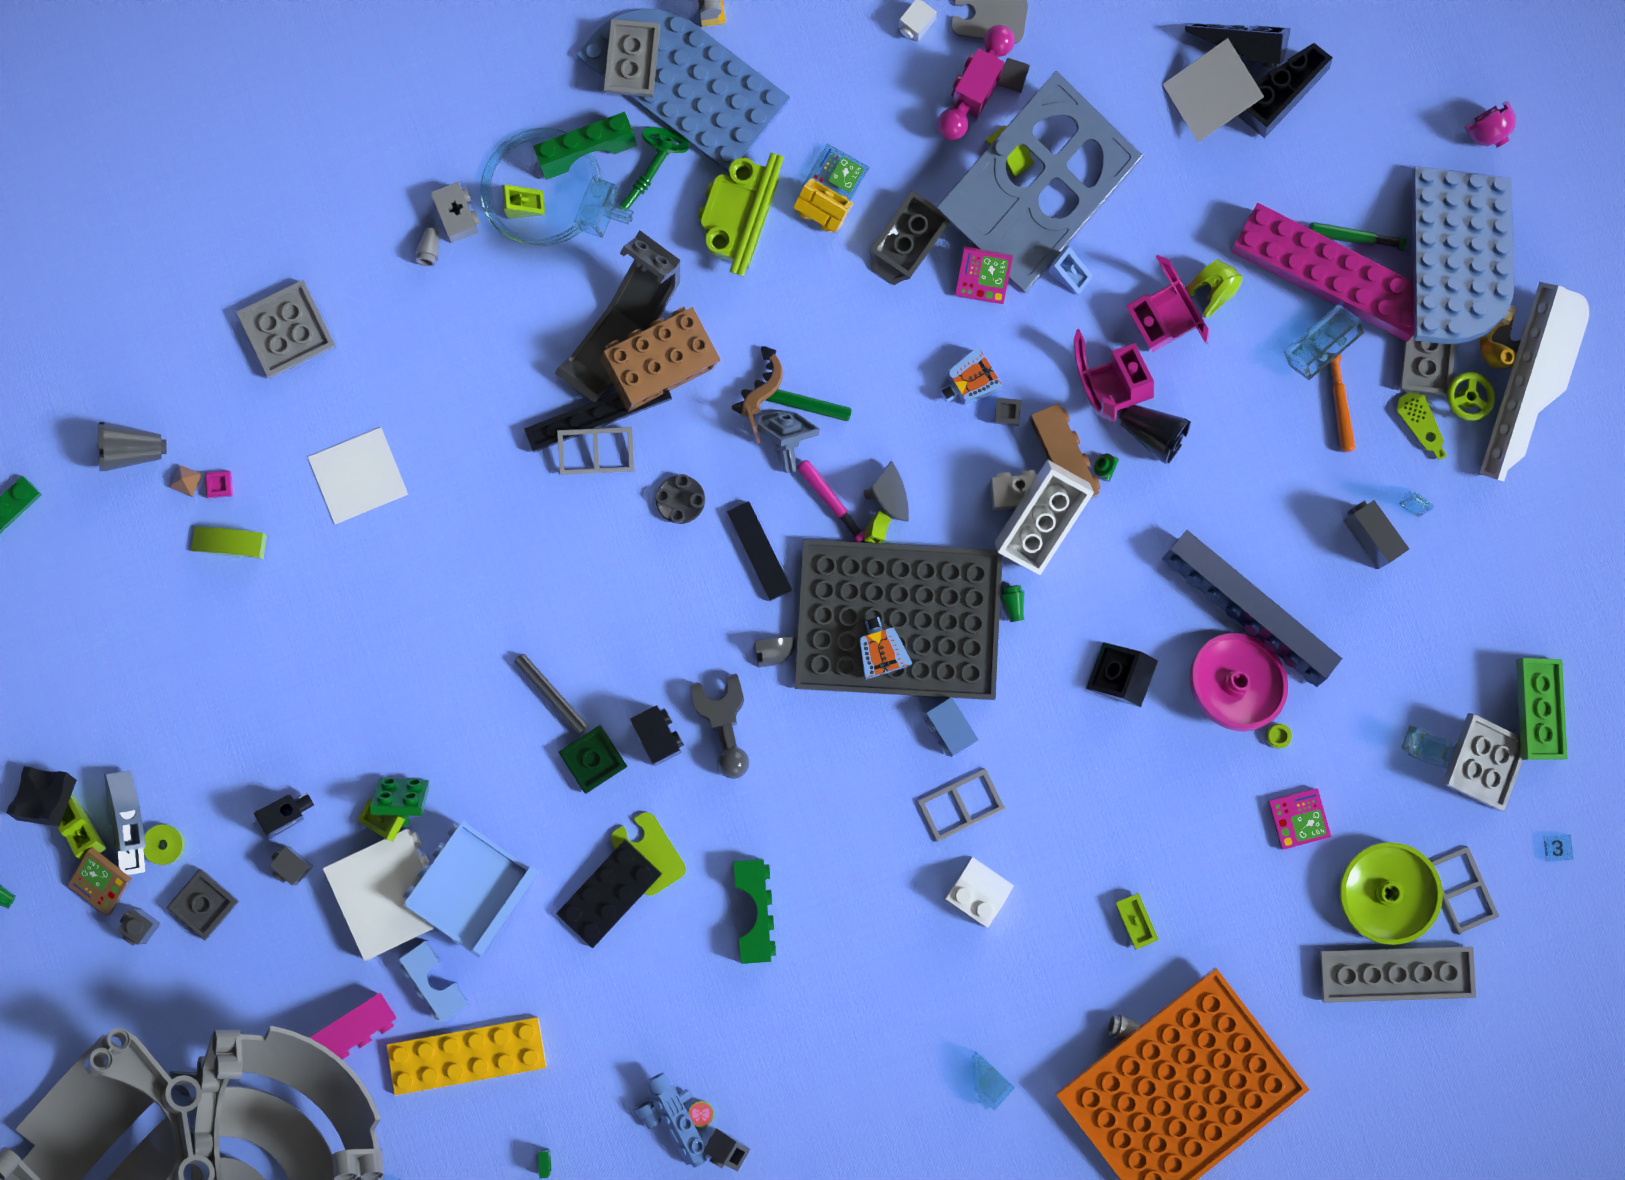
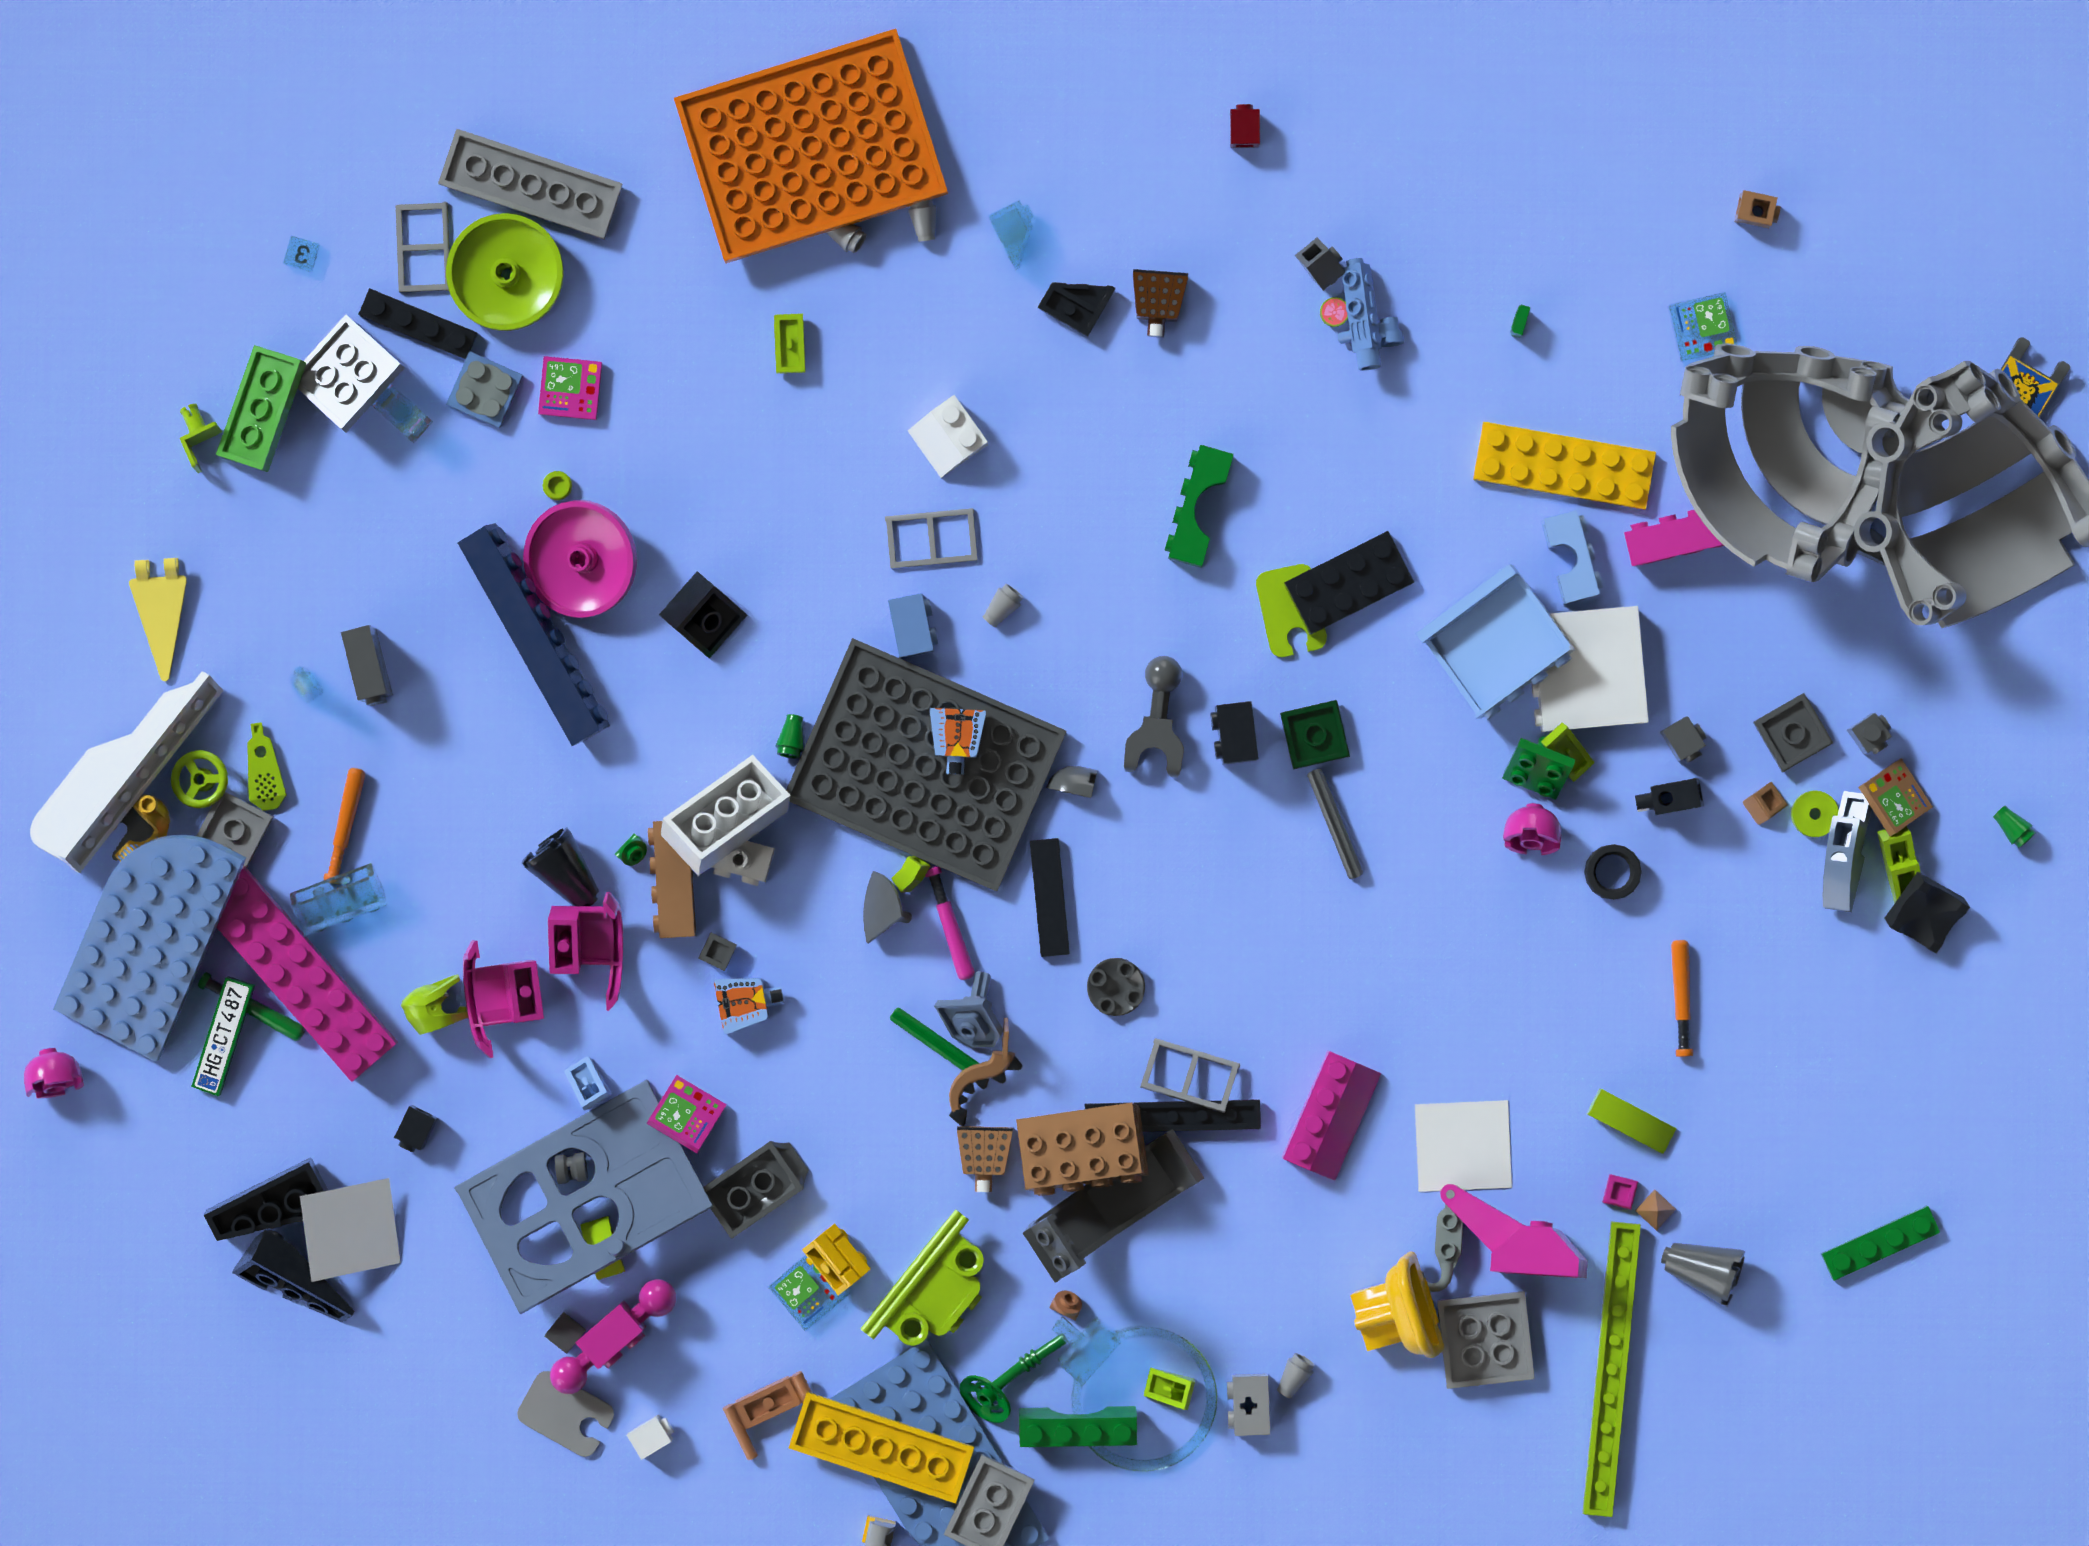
camera: 155 degrees left, 5 degrees up
(178, 343) = (1611, 1369): none -> lime plate
(207, 838) = (1764, 803): none -> medium nougat slope
(222, 659) = (1681, 985): none -> orange piece
(281, 406) = (1514, 1246): none -> dark pink slope
(297, 723) = (1631, 859): none -> black tyre
(361, 323) = (1399, 1311): none -> yellow piece
(388, 746) = (1532, 829): none -> dark pink cylinder
(472, 459) = (1331, 1115): none -> dark pink slope
(625, 235) = (1067, 1304): none -> nougat plate
(733, 73) = (881, 1447): none -> yellow plate
(737, 331) = (984, 1153): none -> medium nougat torso
(834, 78) = (763, 1405): none -> nougat plate
(849, 1071) = (1158, 298): none -> reddish brown torso
(883, 772) = (1002, 605): none -> light grey cone
(915, 1040) = (1076, 304): none -> black wing
(1058, 201) = (577, 1170): none -> dark grey wheel
(1066, 1064) = (924, 219): none -> light grey cone
(1192, 188) = (415, 1129): none -> black brick
(1367, 792) = (484, 389): none -> light grey piece
(1370, 205) = (223, 1036): none -> tile
(1442, 825) = (417, 323): none -> black plate
(1555, 520) = (160, 609): none -> light yellow flag
(1583, 671) = (197, 433): none -> lime bracket

